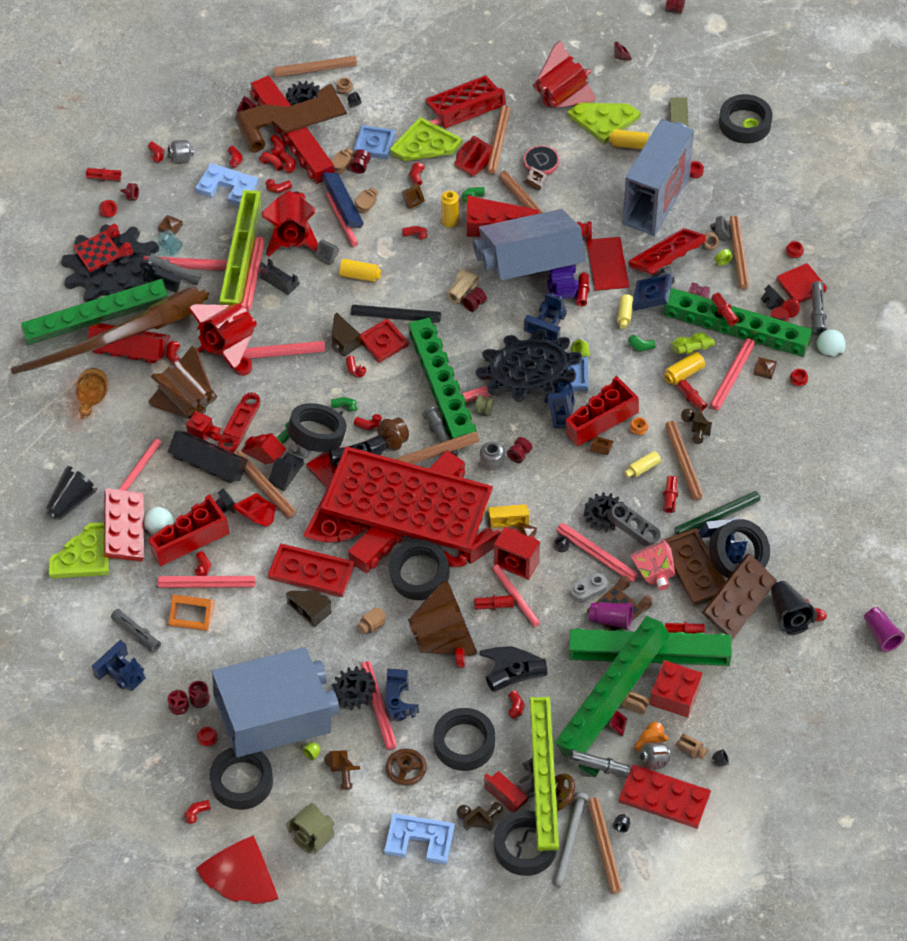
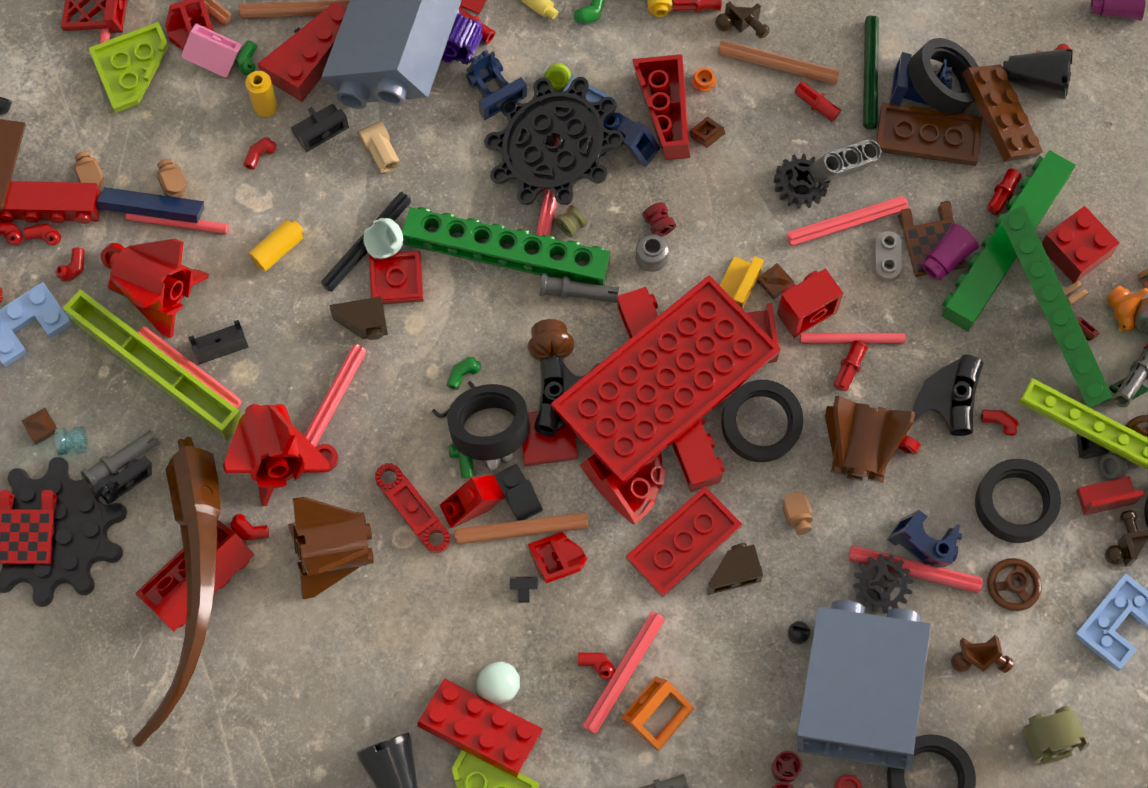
camera: 60 degrees left, 15 degrees up
(91, 390) = (247, 662): clear orange piece -> none
(93, 312) = (121, 593): green brick -> none
(140, 465) = (398, 664): coral bar -> none
(189, 532) = (545, 649): red wedge -> none
(193, 263) = (120, 432): coral axle -> none
(202, 427) = (393, 556): red brick -> none
(208, 456) = (444, 571): black brick -> none
(265, 157) = (25, 247): red arm -> none
(311, 750) = (937, 677): lime hinge -> none
(326, 251) = (220, 266): dark grey tile -> none
(353, 369) = (418, 334): red arm -> none
(360, 161) = (106, 152): dark red wheel -> none
(368, 424) = (511, 360): red arm -> none
(375, 141) = (83, 120): medium blue tile -> none
(399, 316) = (383, 238): none -> light aqua hair
(413, 196) = (204, 124): reddish brown tile -> none
(414, 173) = (167, 102): red arm -> none
(440, 448) = (604, 311): nougat axle -> none
(453, 251) = (320, 127): none -> black panel
(459, 561) = (769, 372): red arm -> none
(463, 172) = (210, 50): none -> bright pink panel
(474, 299) = (409, 145): dark red wheel -> none
(563, 546) = (806, 251): black hinge -> none
(643, 464) = (759, 106): light yellow cylinder -> none
(655, 564) = (909, 170): coral torso -> none

